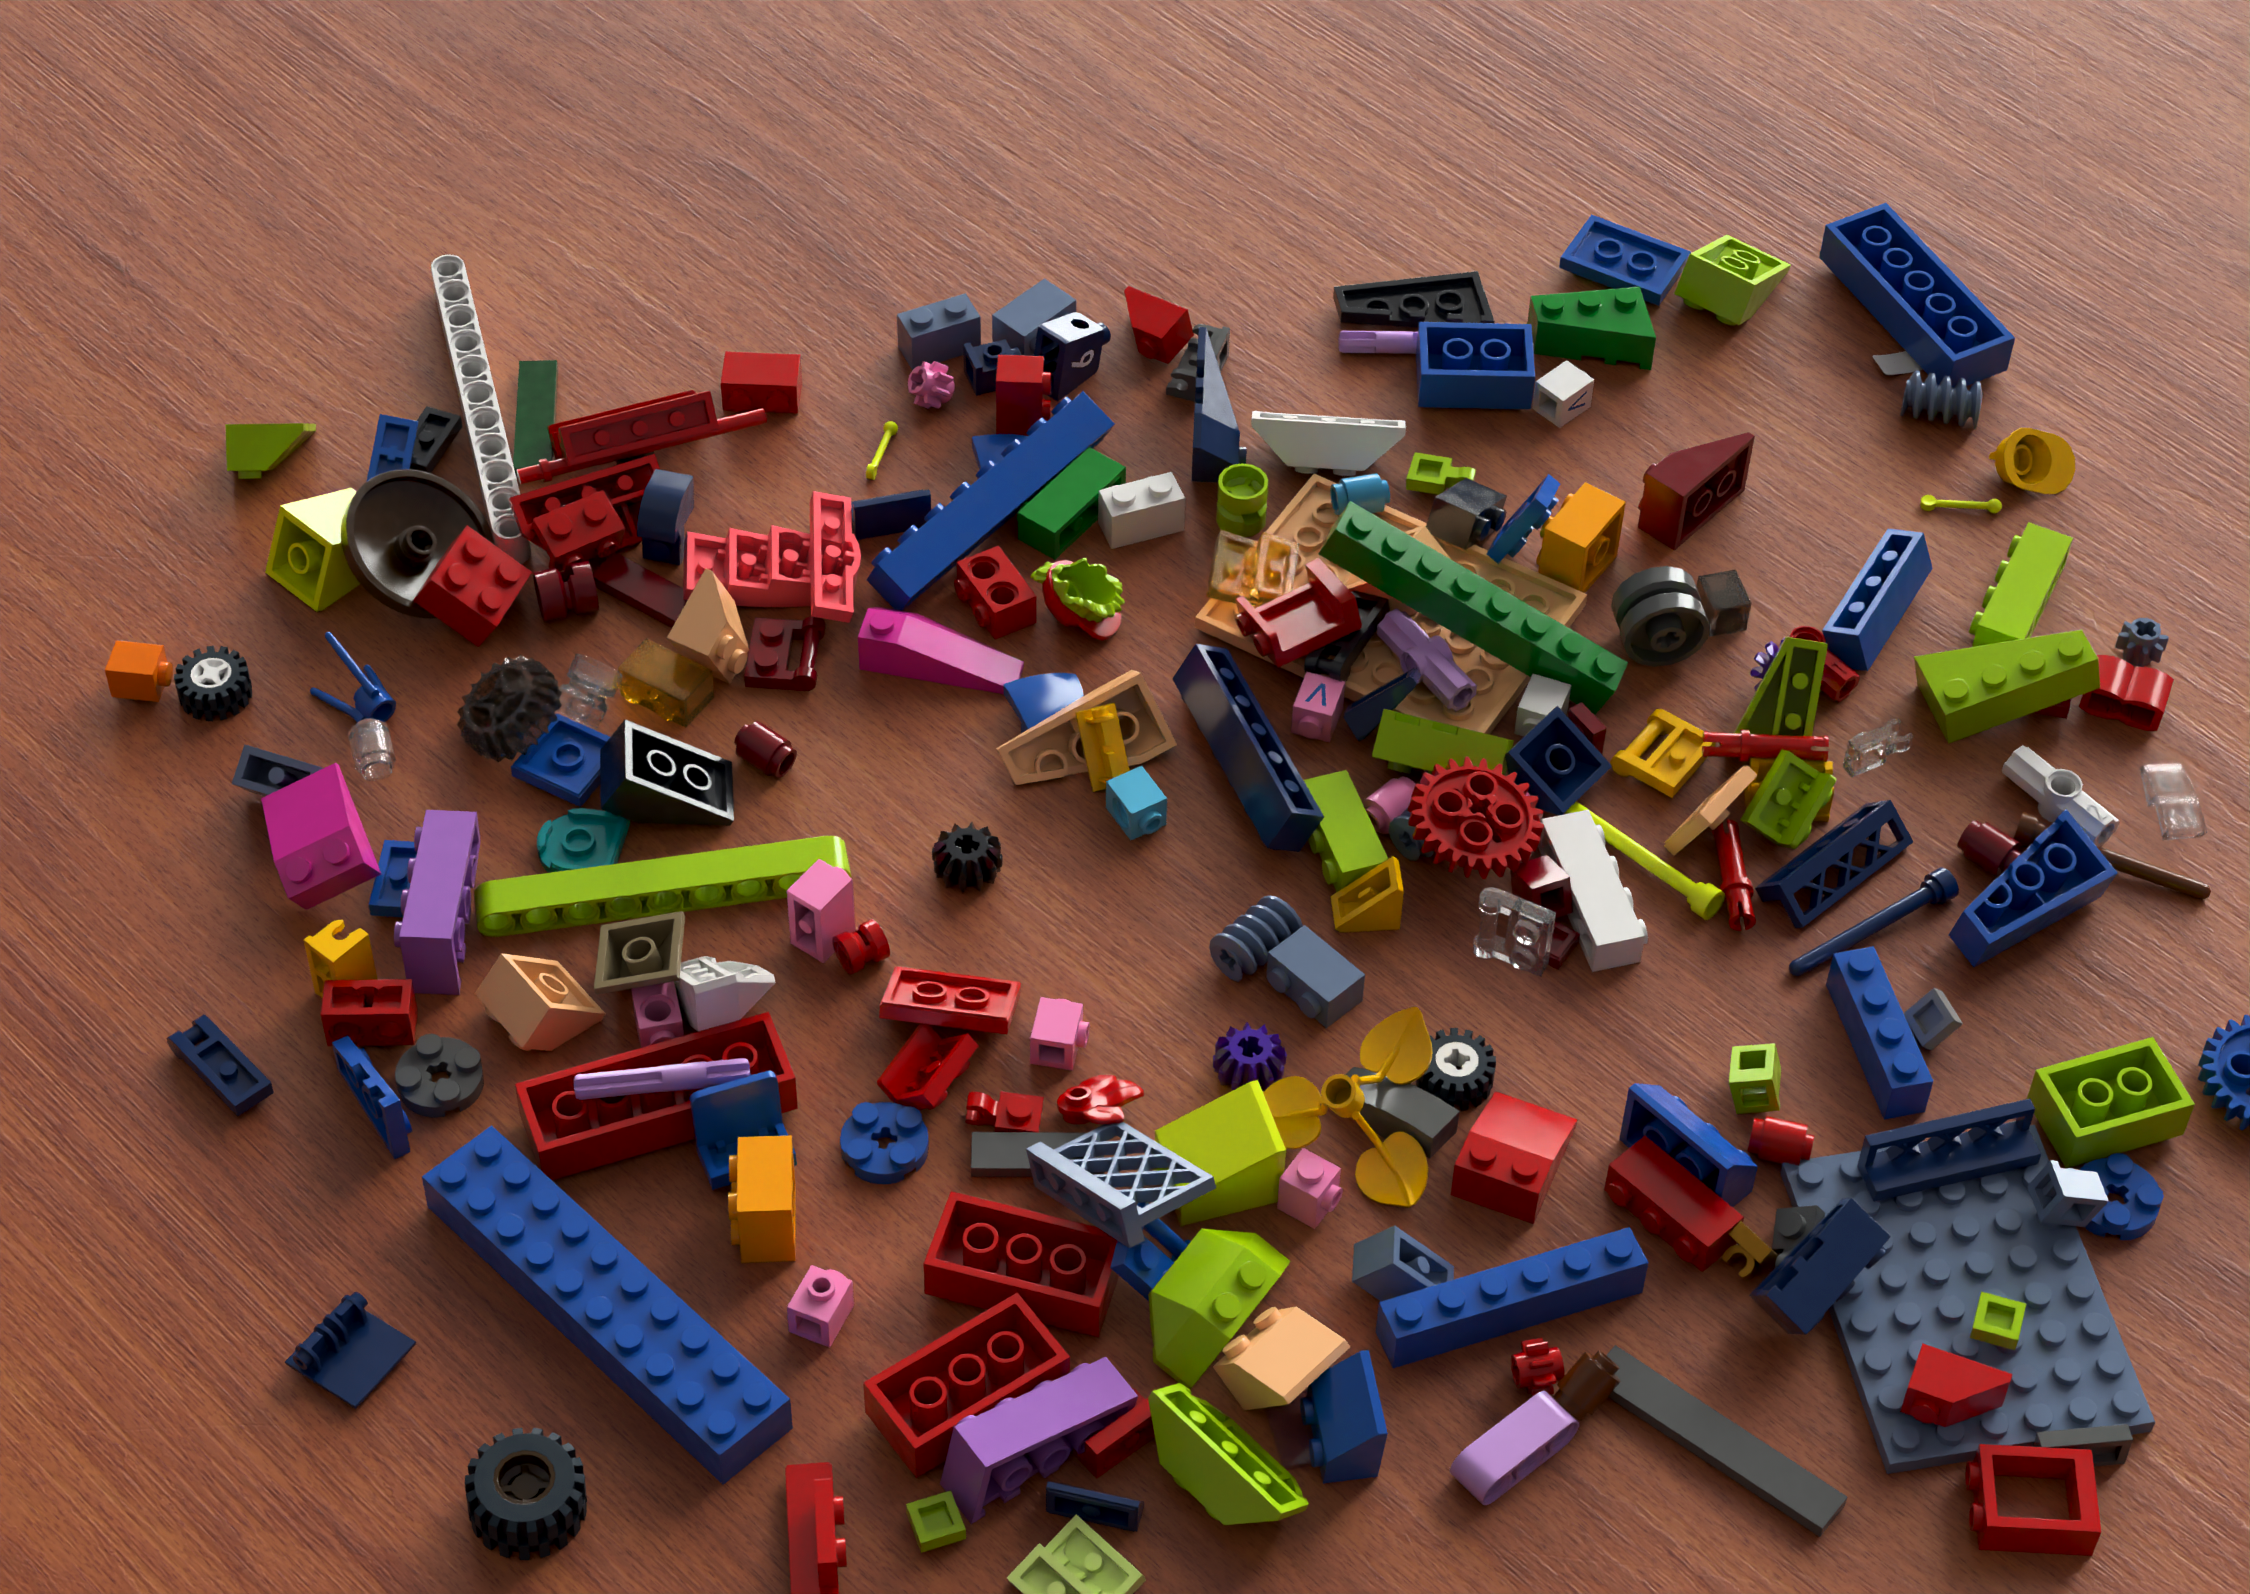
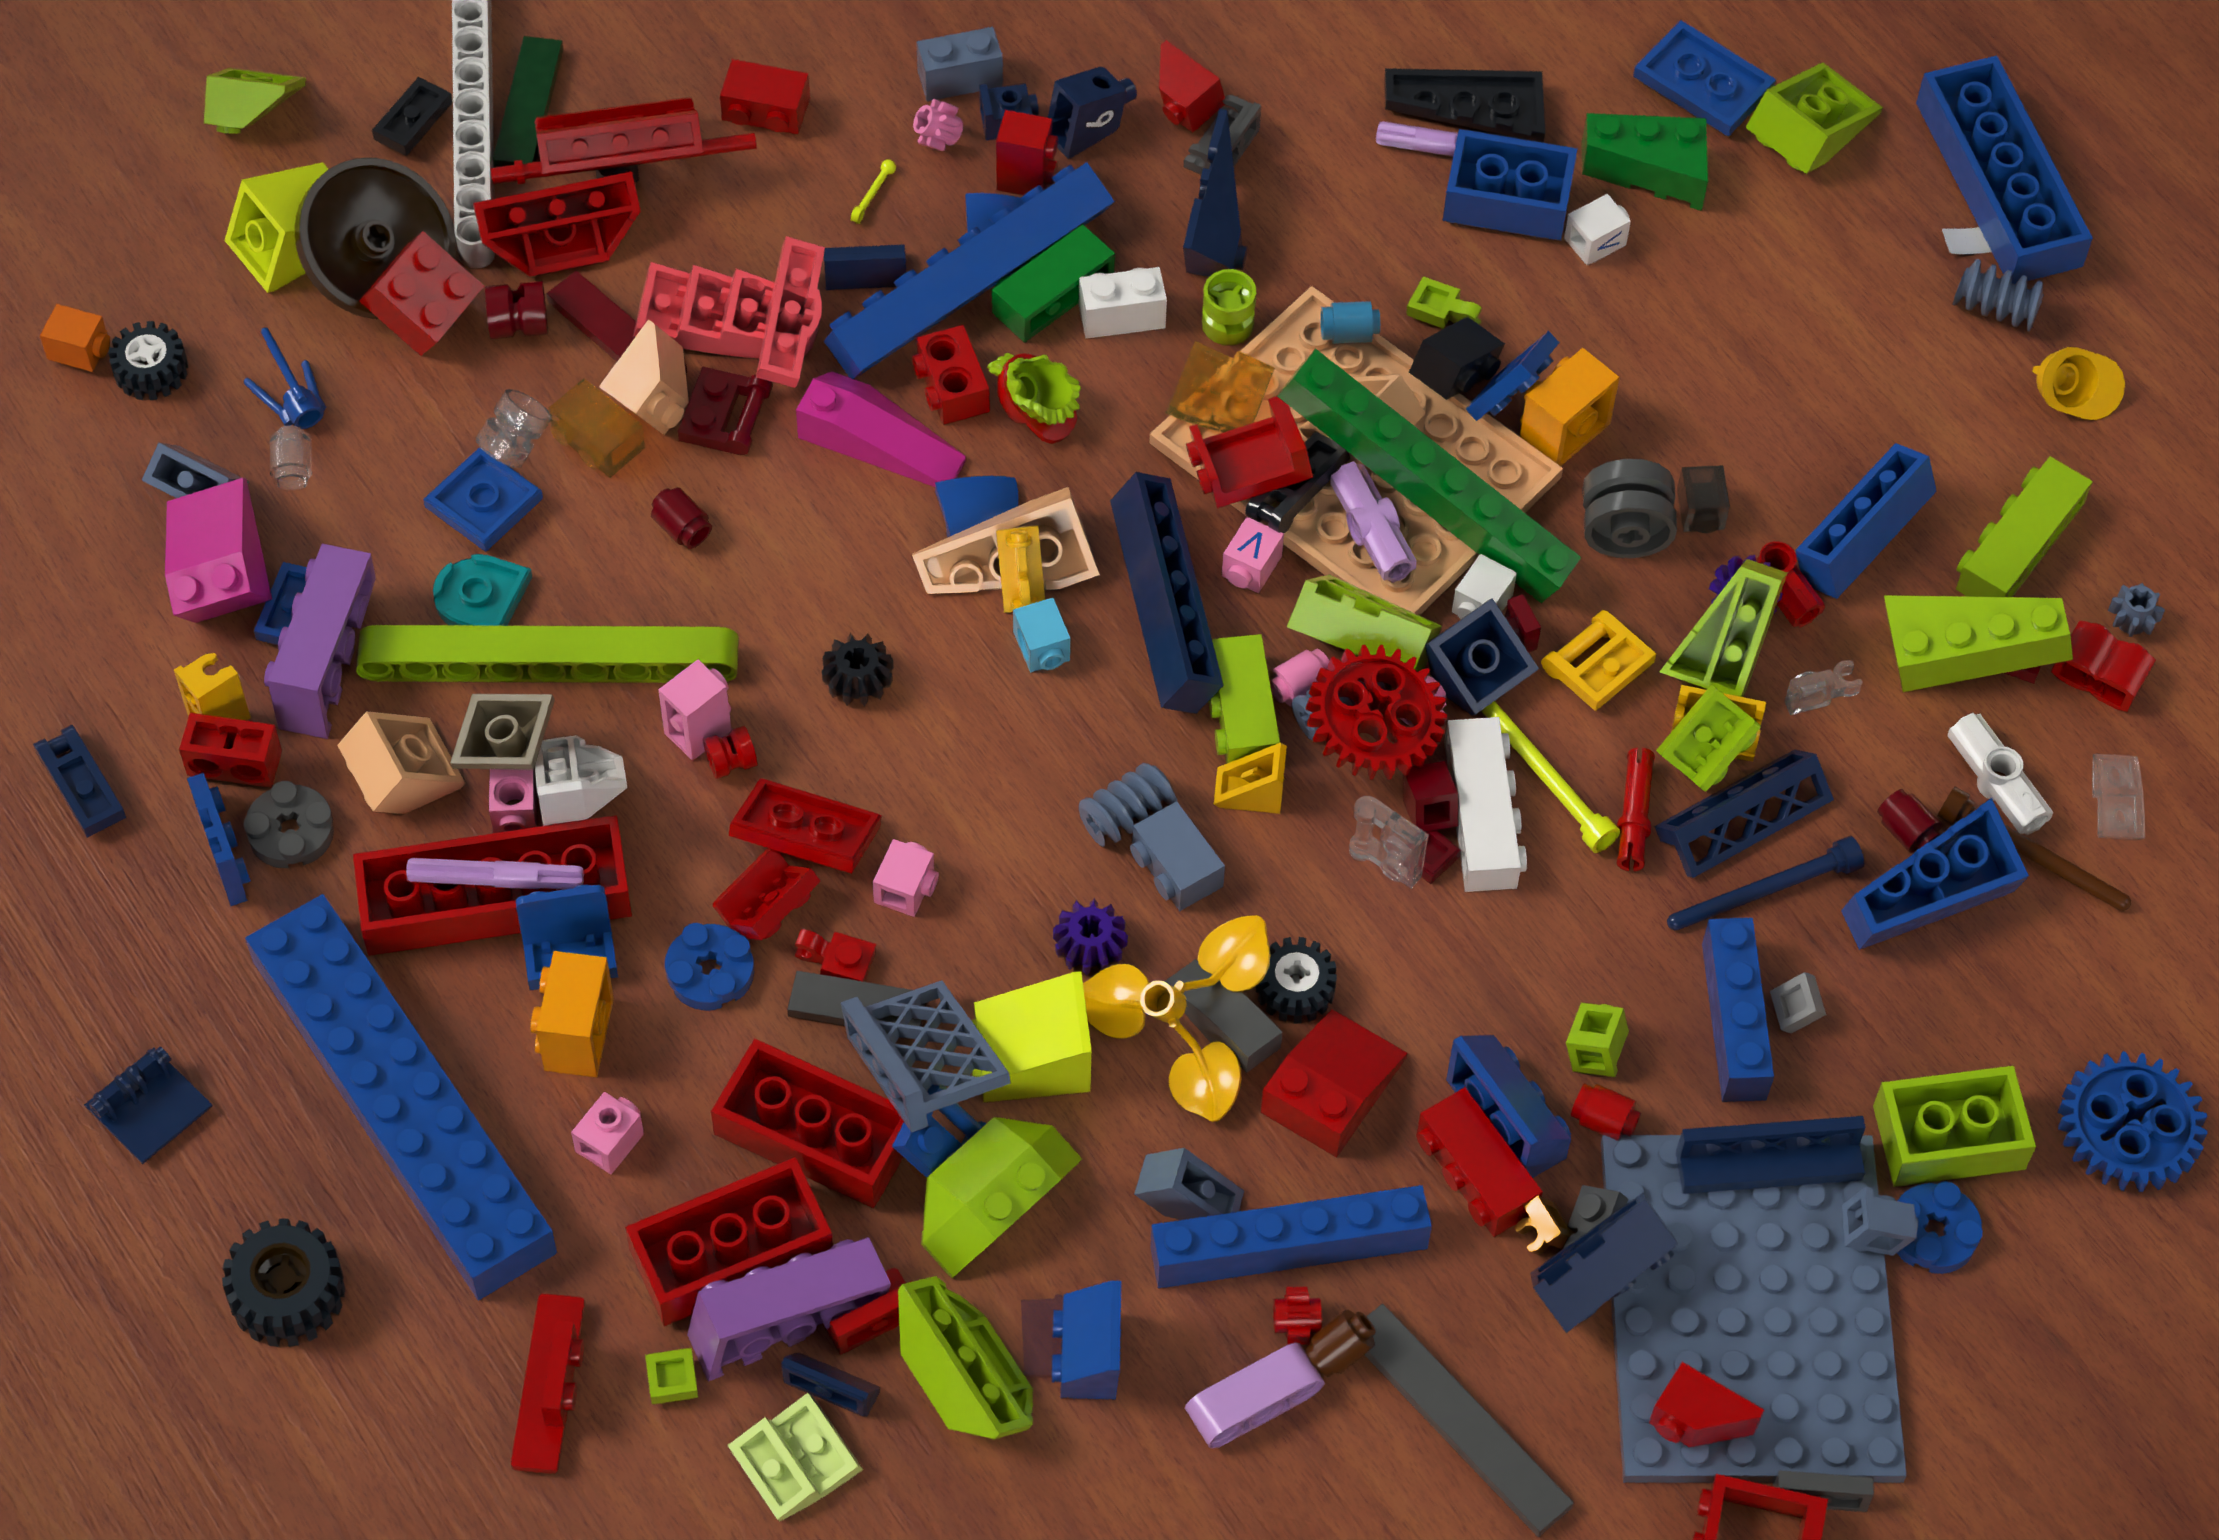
camera: 10 degrees right, 10 degrees up
(392, 445) = (370, 126): blue hinge -> none
(509, 708) = (431, 437): clear smoke gear -> none
(580, 531) = (540, 247): red bracket -> none
(663, 514) = (628, 240): dark blue brick -> none
(663, 780) = (572, 539): black slope -> none
(1022, 316) = (1057, 57): sand blue brick -> none
(1098, 1100) = (929, 956): red plate -> none
(1278, 1358) = (1039, 1266): light nougat slope -> none
(1309, 1188) = (1116, 1087): bright pink brick -> none
(1327, 441) = (1331, 251): white wedge -> none
(1367, 711) = (1312, 563): dark blue slope -> none
(1693, 488) = (1703, 363): dark red slope -> none
(1711, 810) = (1626, 737): light nougat plate -> none
(1763, 745) = (1697, 675): red pin -> none
(1929, 503) = (1957, 411): neon yellow hinge -> none
(1998, 1320) = (1771, 1345): lime plate -> none

